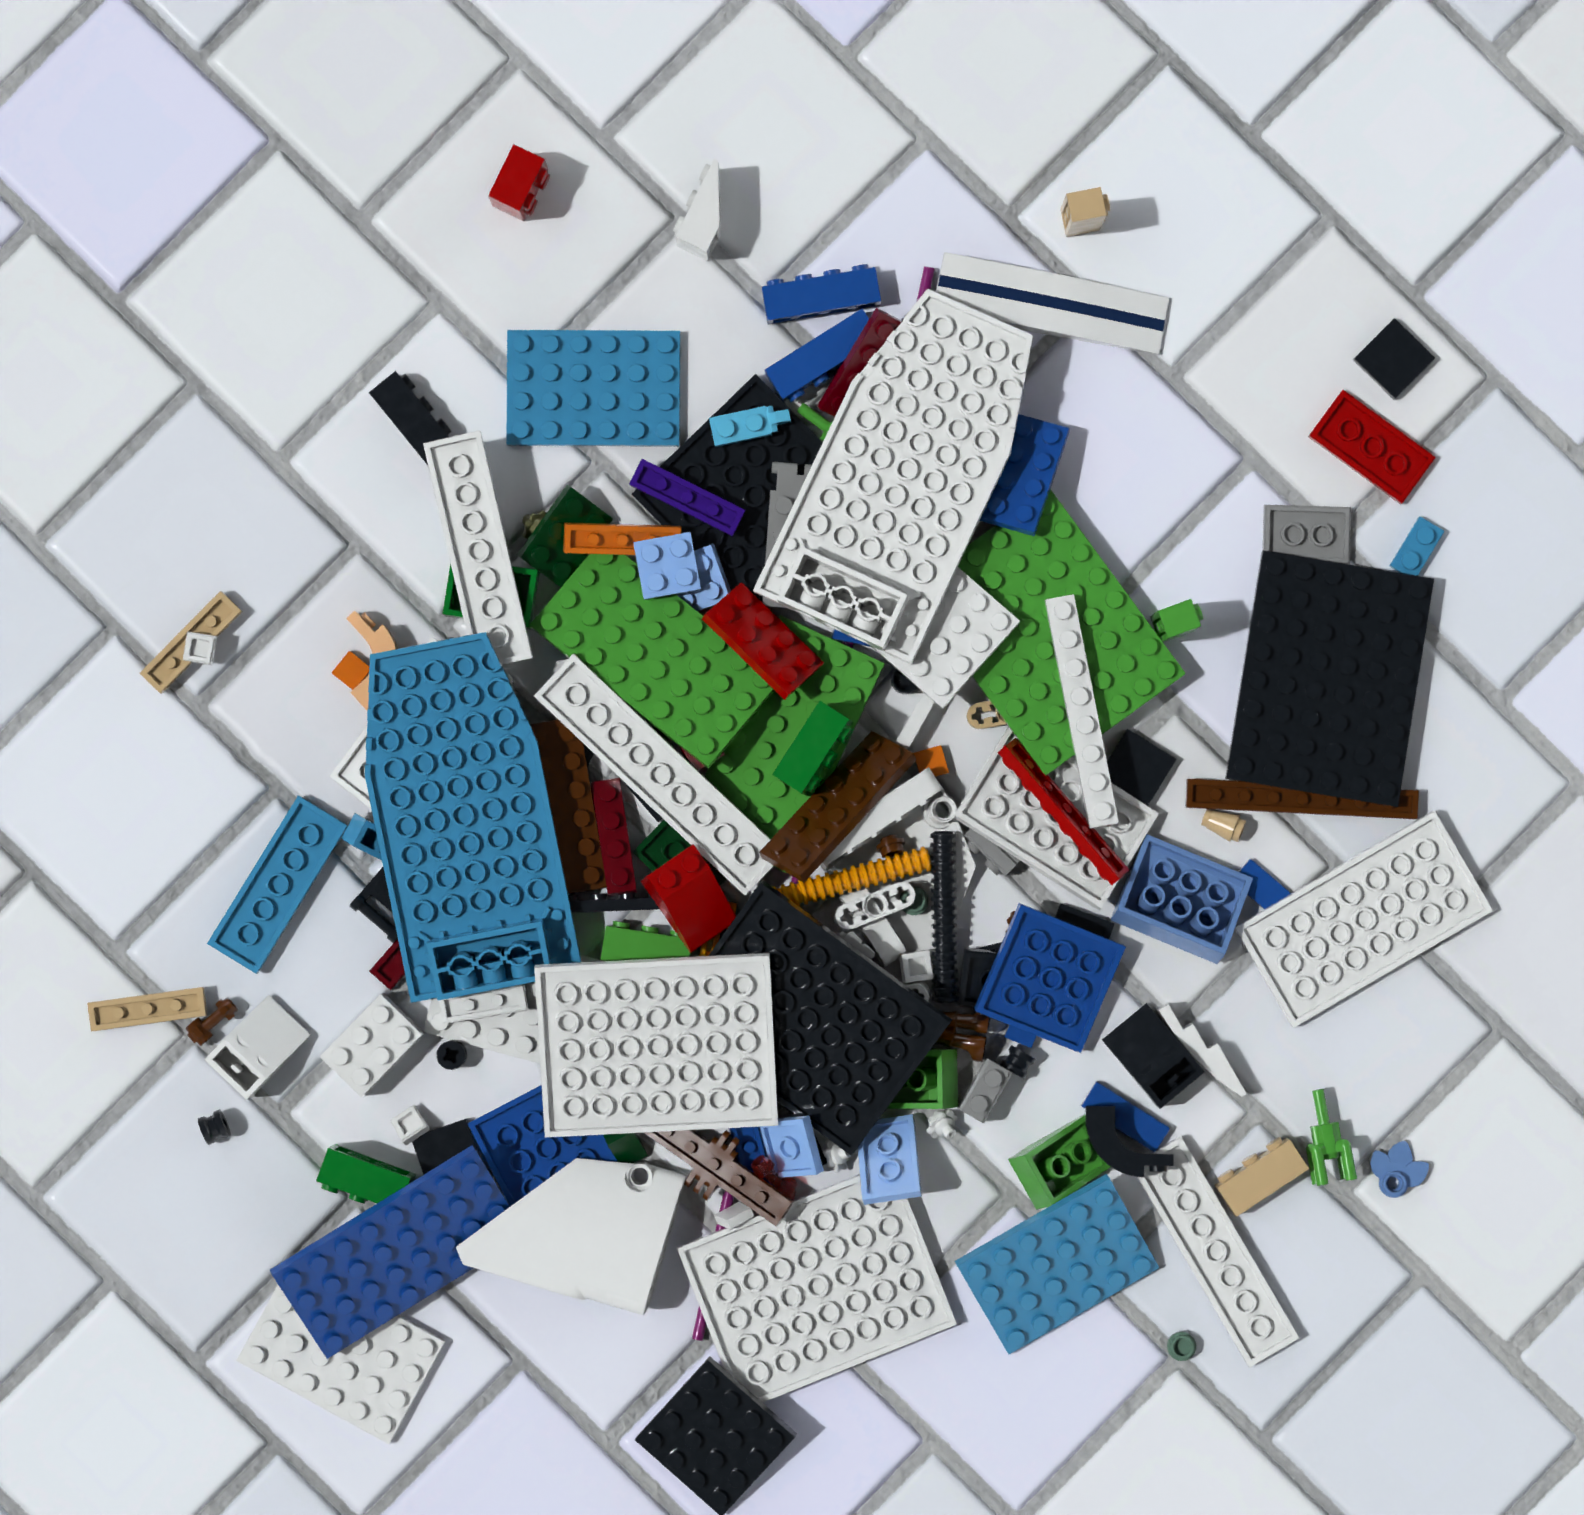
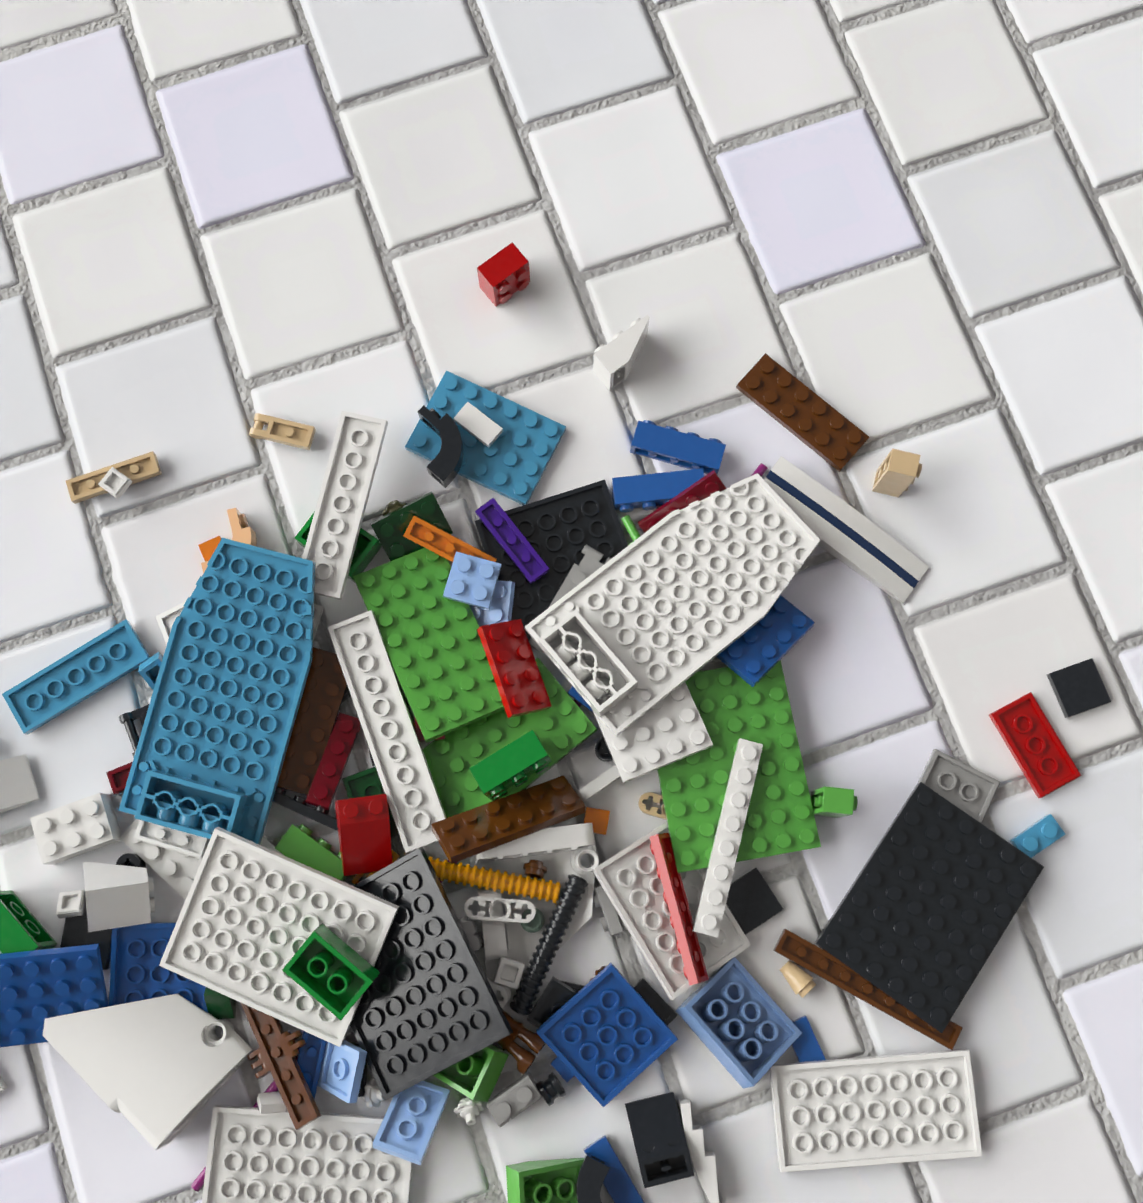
camera: 25 degrees right, 10 degrees down
(356, 494) = (282, 431): none -> tan plate
(408, 412) = (347, 389): black brick -> none
(457, 1090) = (117, 896): none -> white slope
(569, 436) = (450, 457): none -> black arch
(579, 379) = (478, 424): none -> white tile
(734, 1050) = (331, 971): none -> green brick
(747, 424) = (581, 511): medium azure hinge -> none
(764, 1167) = (323, 1098): clear red bar -> none
(943, 180) = (802, 412): none -> reddish brown plate

